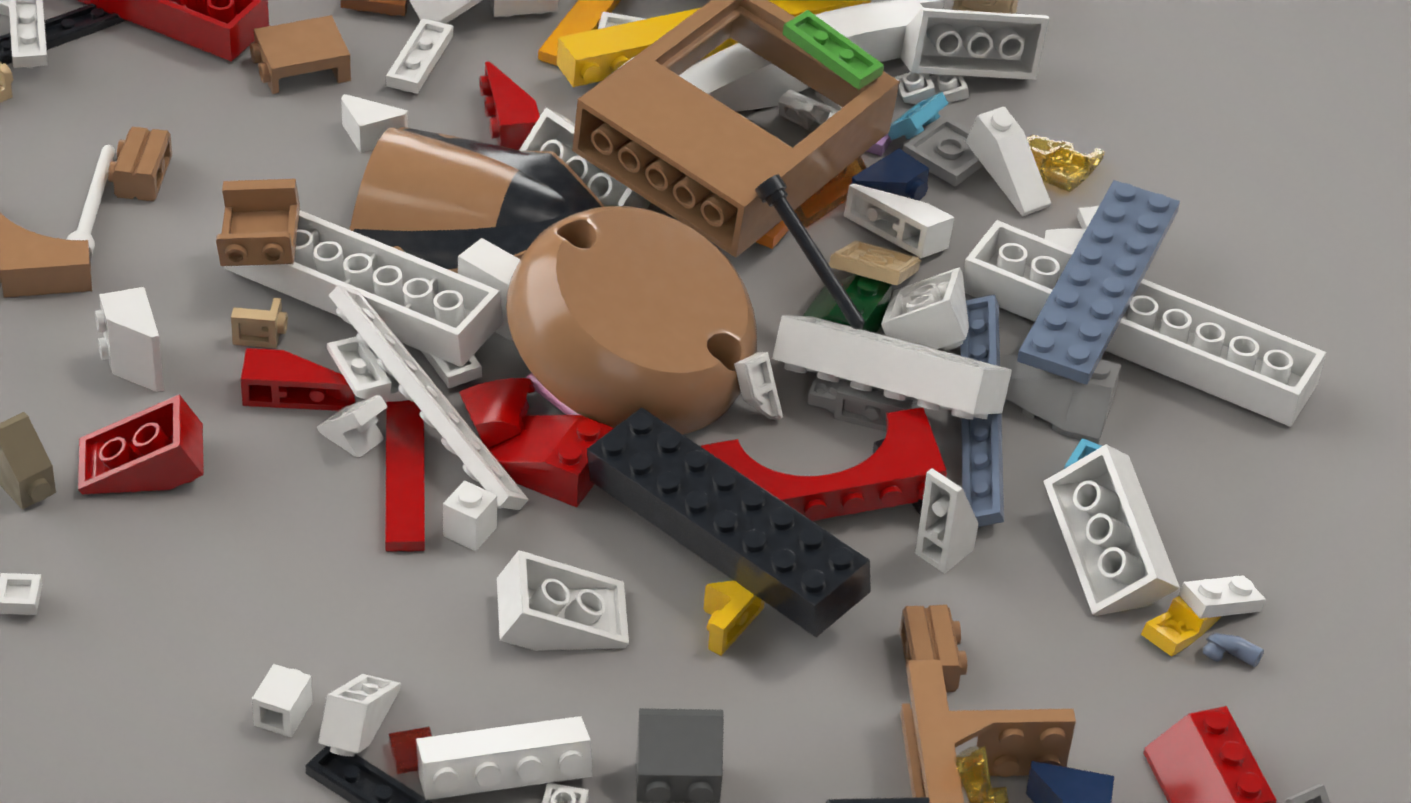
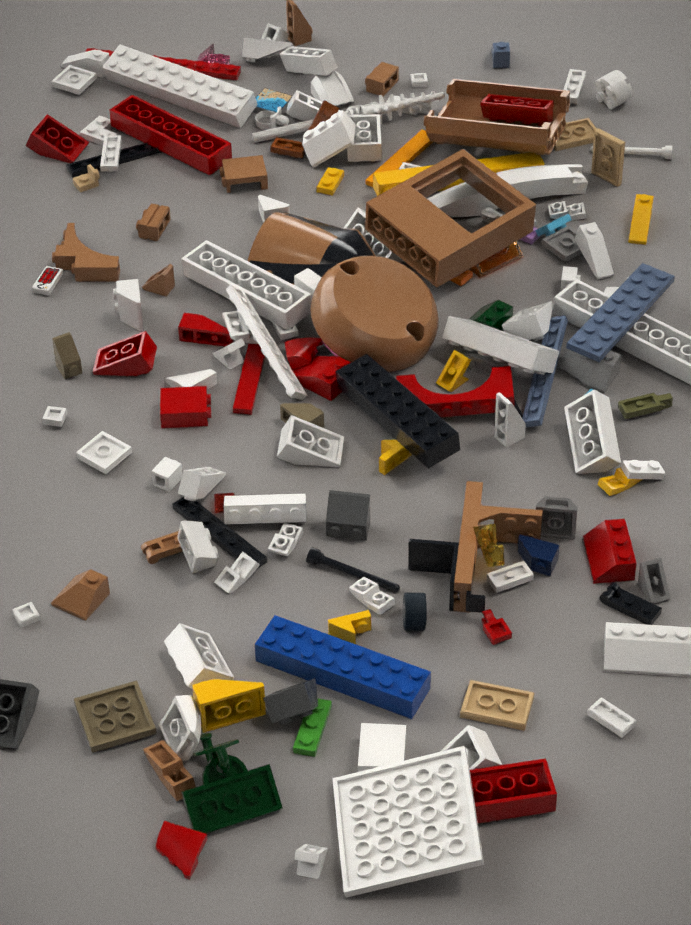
camera: 15 degrees right, 0 degrees up
(94, 198) = (127, 238): white piece -> none
(138, 664) = (104, 452): none -> white plate
(182, 285) = (161, 282): none -> medium nougat slope
(259, 222) = (200, 253): medium nougat panel -> none
(259, 327) = (193, 303): tan bracket -> none
(287, 548) = (184, 407): none -> red brick
(291, 491) = (200, 378): none -> white slope
(419, 56) = (304, 178): white plate -> none
(469, 57) = (330, 181): none -> yellow plate
(470, 515) = (273, 397): white brick -> none
(509, 106) = (341, 206): red slope -> none
(531, 536) = (304, 411): none -> dark tan slope
(758, 384) = (432, 349): white tile -> none
(774, 194) = (454, 254): black piece -> none
(808, 425) = (453, 372): none -> yellow slope
(833, 49) = (503, 186): bright green plate -> none
(875, 262) = (509, 295): tan tile -> none
(897, 175) = (529, 257): dark blue slope -> none
(900, 220) = (531, 277): white slope -> none
(934, 636) = (490, 474): medium nougat brick -> none
(974, 43) = (591, 189): white slope -> none
(974, 220) = (569, 274): none -> white brick
(1060, 162) = (624, 253): clear yellow slope -> none
(1073, 93) = (641, 219): none -> yellow slope
(1103, 713) = (558, 517): none -> light grey slope
(1184, 461) = (644, 404): none -> olive hinge
(1234, 645) = (642, 493): sand blue arm -> none

